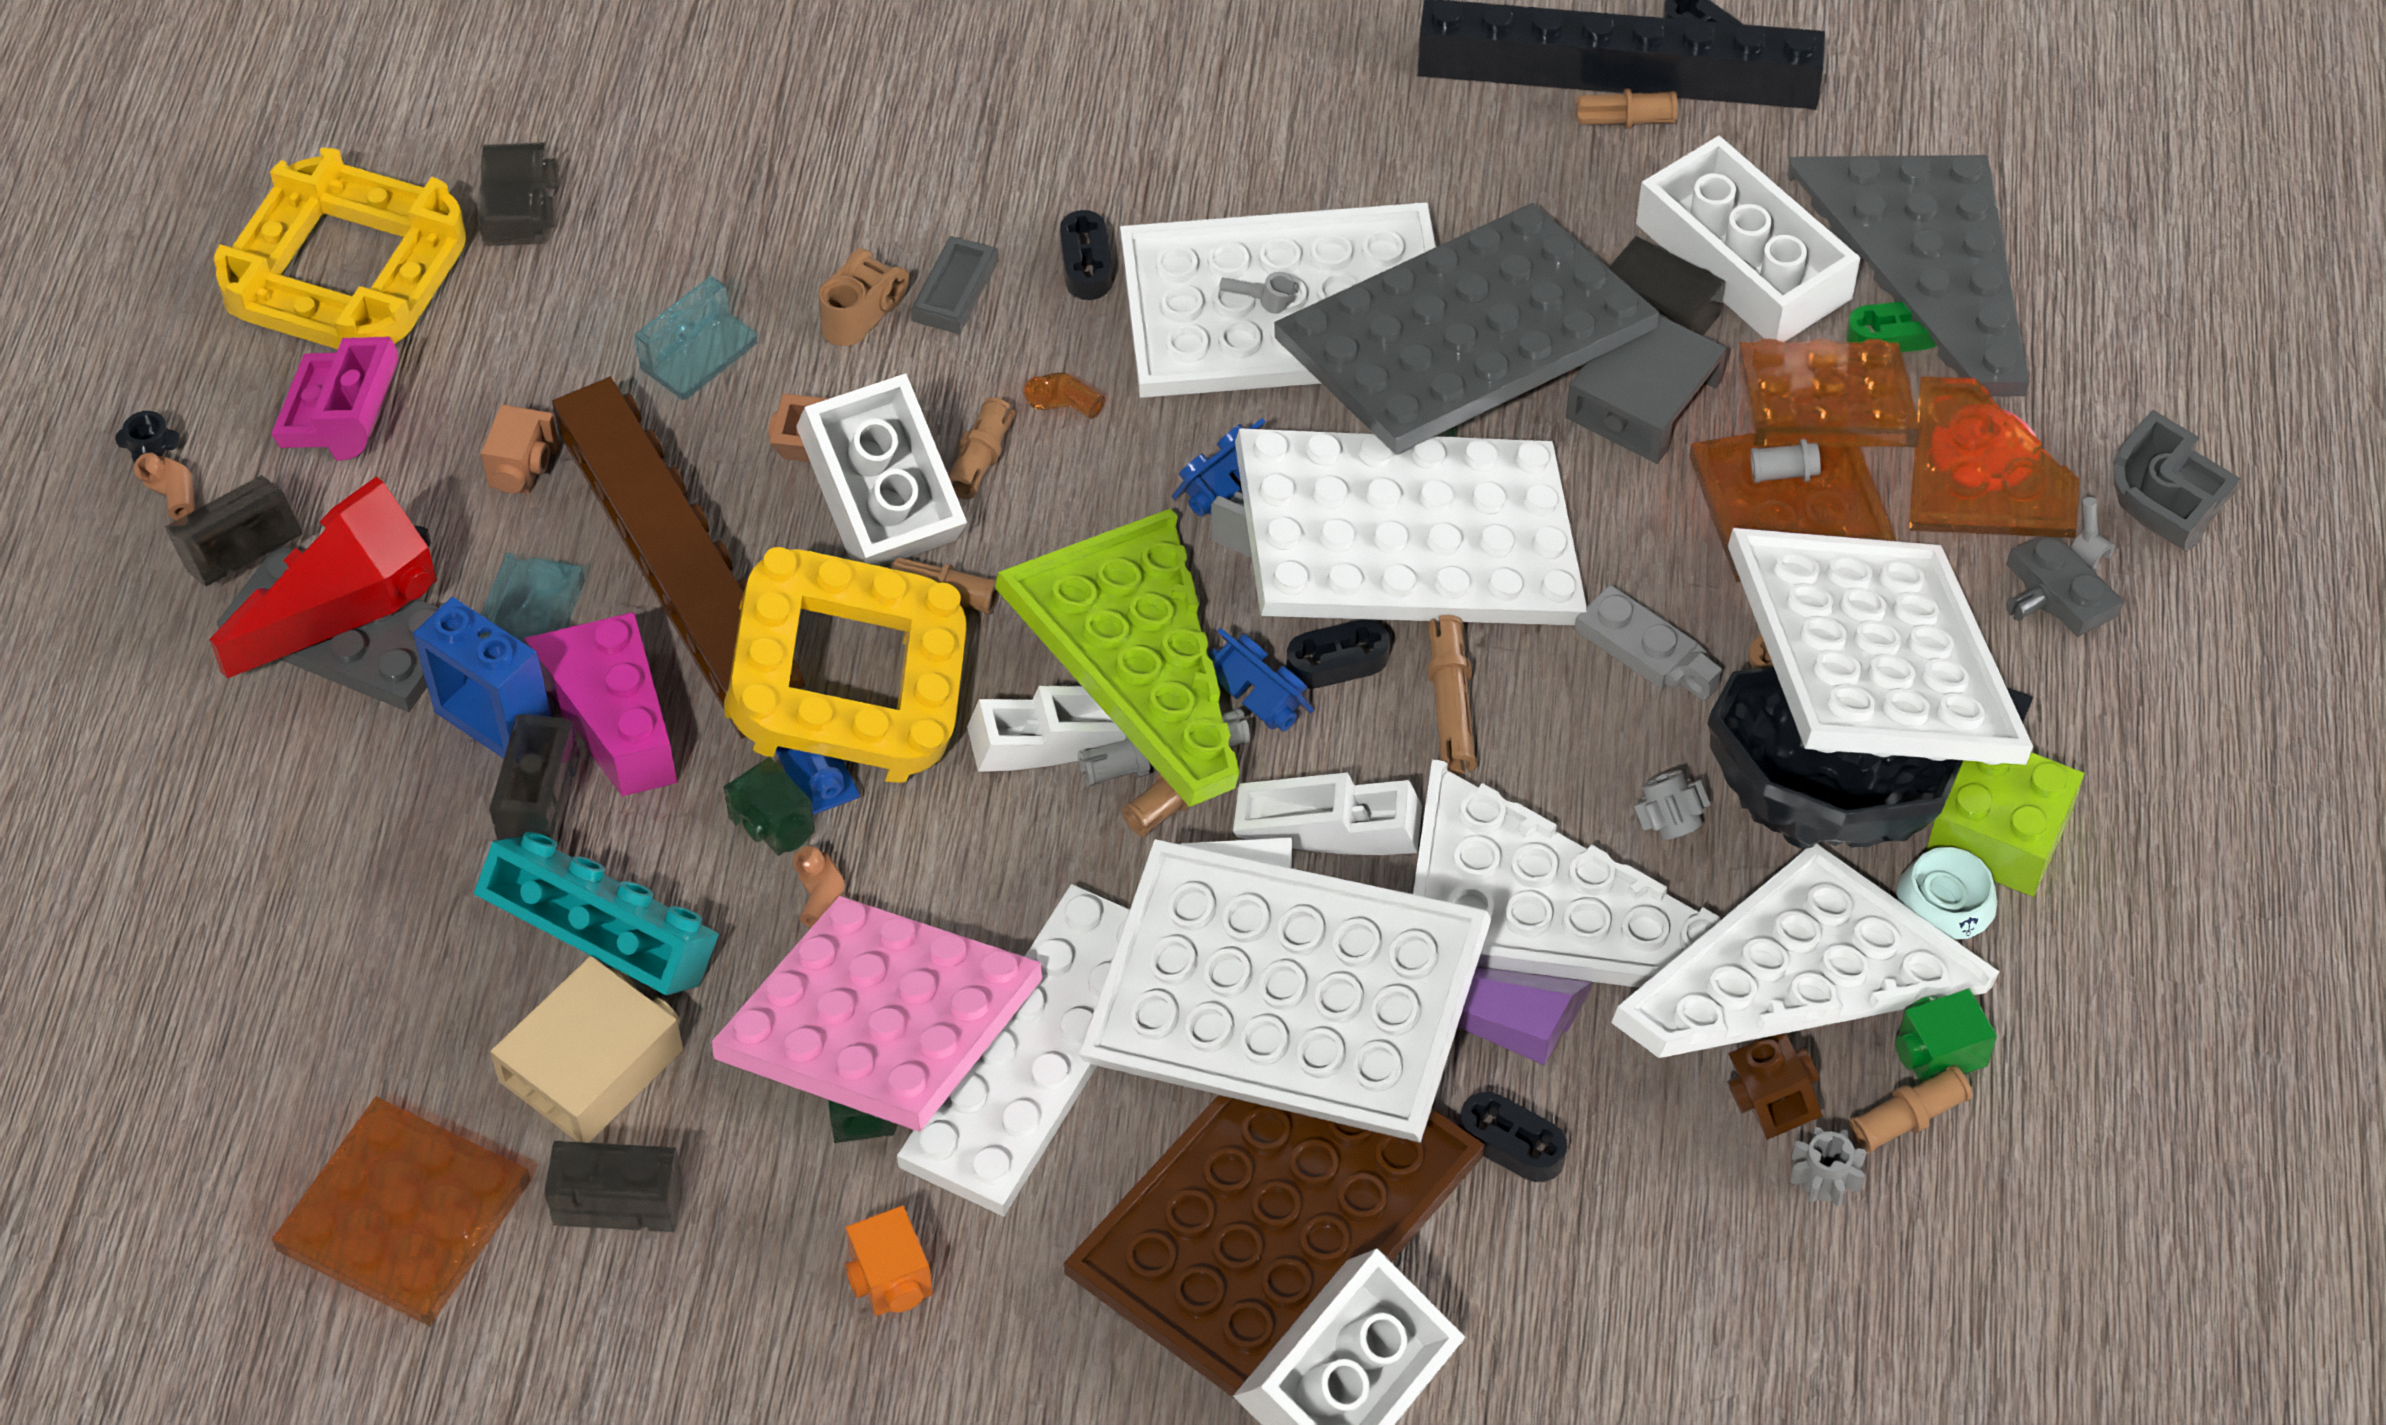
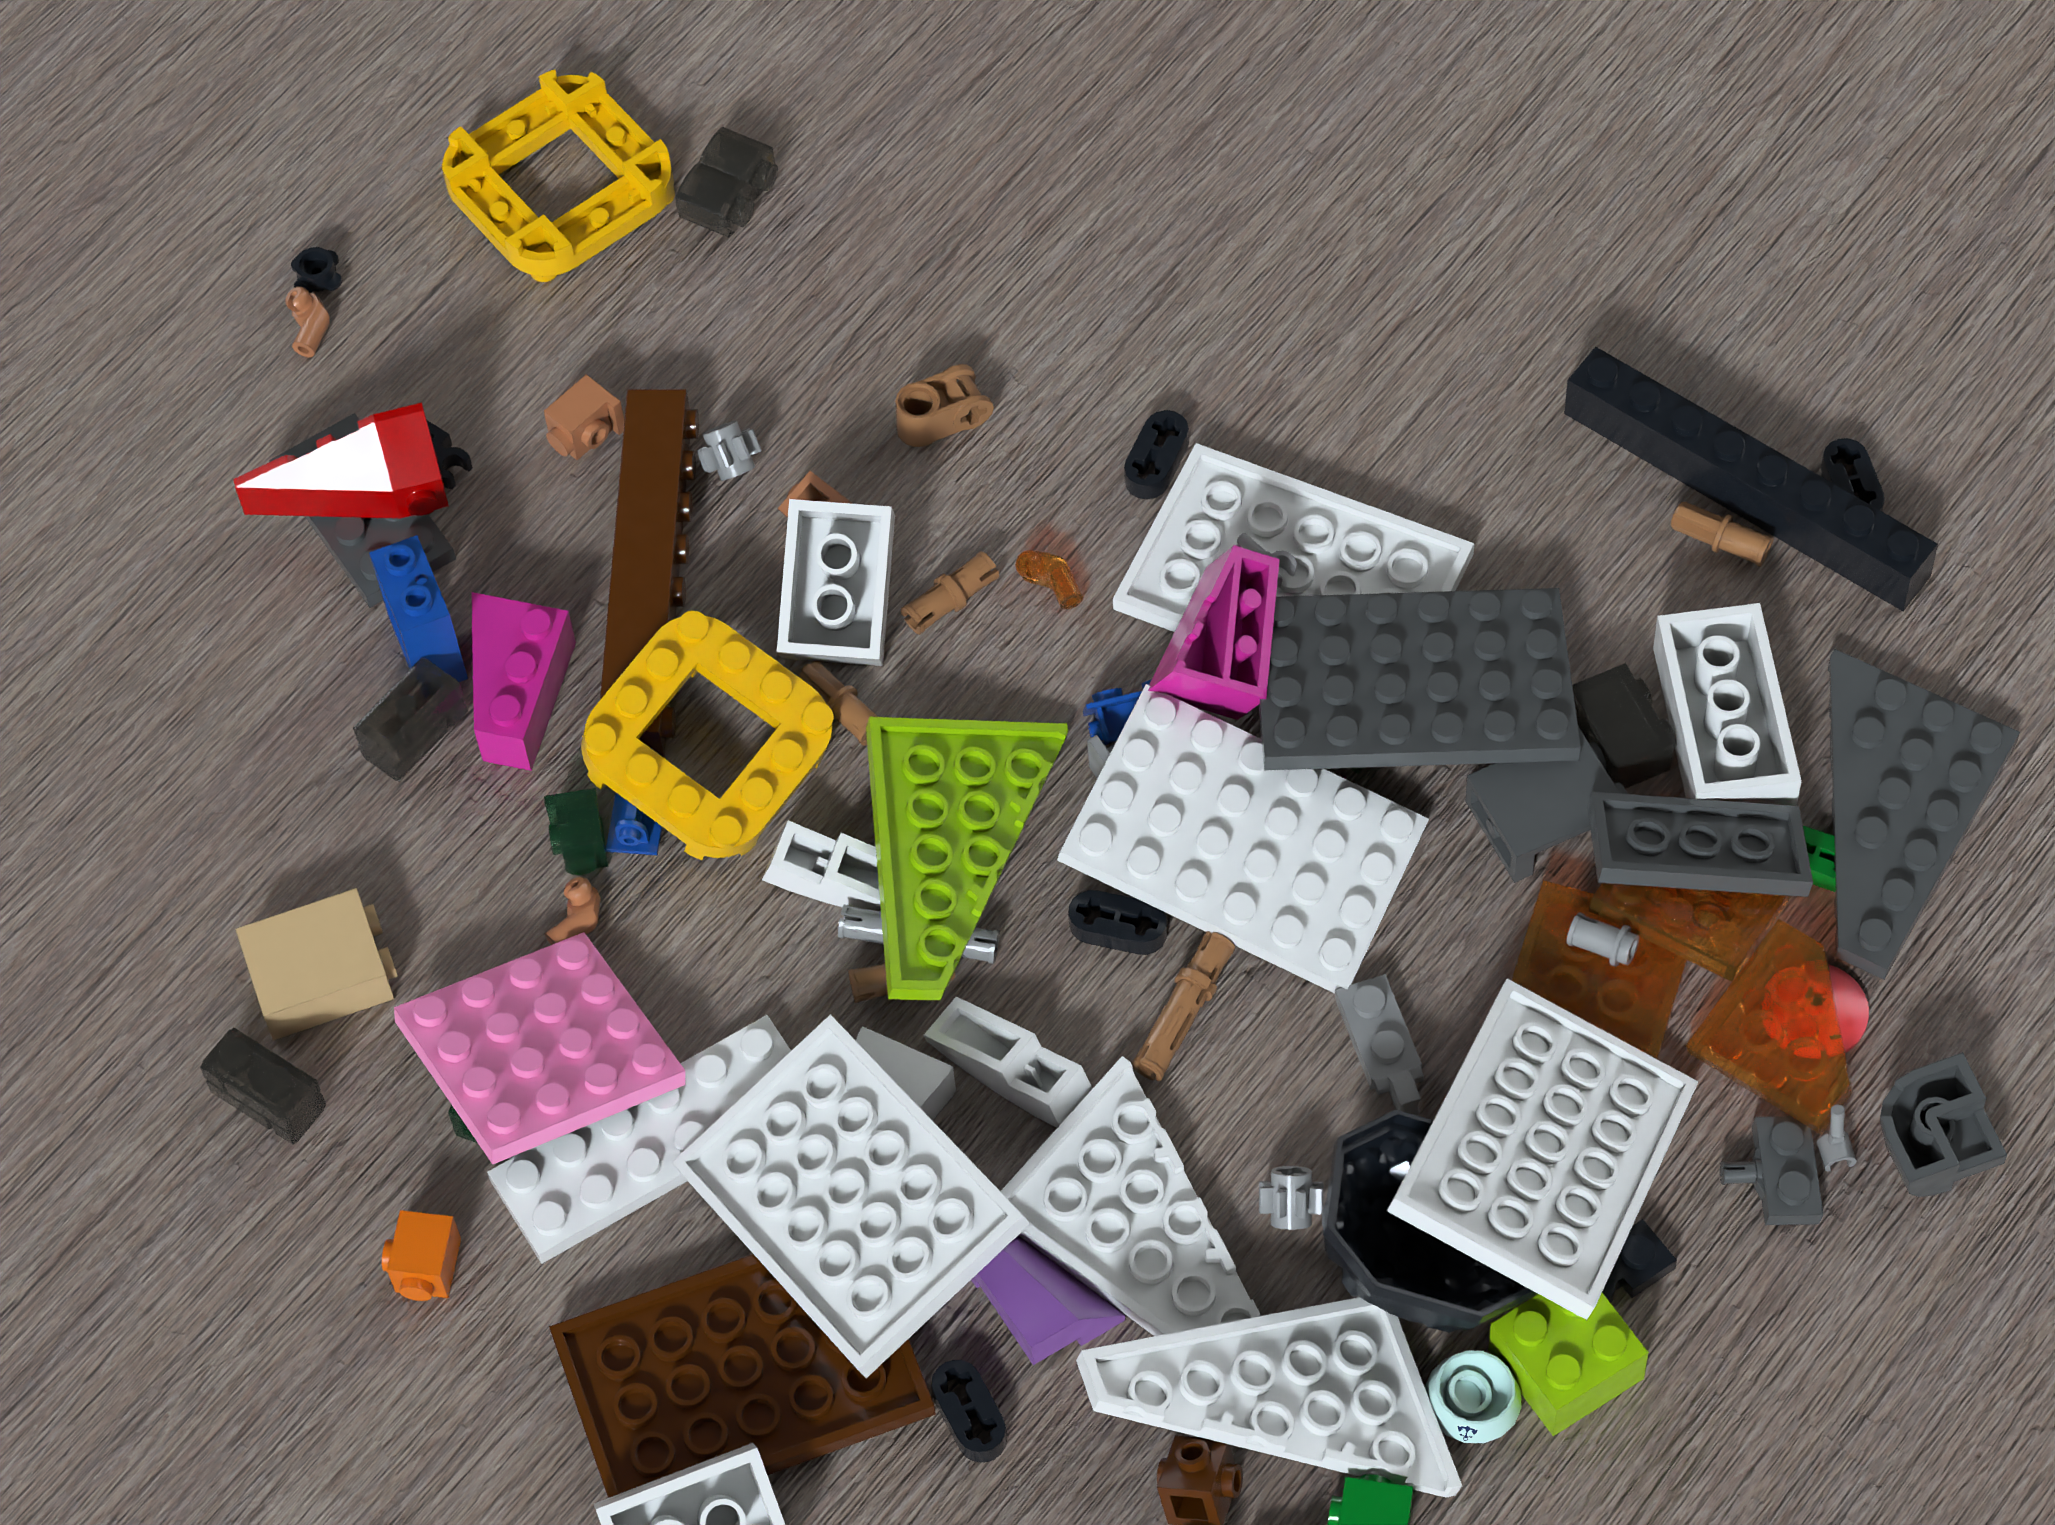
camera: 35 degrees right, 5 degrees up
(234, 530) = (323, 387): clear smoke brick -> none
(337, 397) = (473, 305): dark pink brick -> none
(402, 1210) = (110, 1022): clear orange plate -> none
(532, 596) = (511, 559): clear light blue plate -> none
(597, 913) = (386, 855): teal brick -> none
(683, 415) = (728, 450): none -> light grey gear
(693, 340) = (785, 384): clear light blue panel -> none
(954, 285) = (1031, 431): dark grey tile -> none
(1274, 693) = (1031, 894): blue hinge -> none
(1280, 358) = (1224, 637): none -> dark pink wedge
(1812, 346) = (1699, 844): none -> dark grey plate

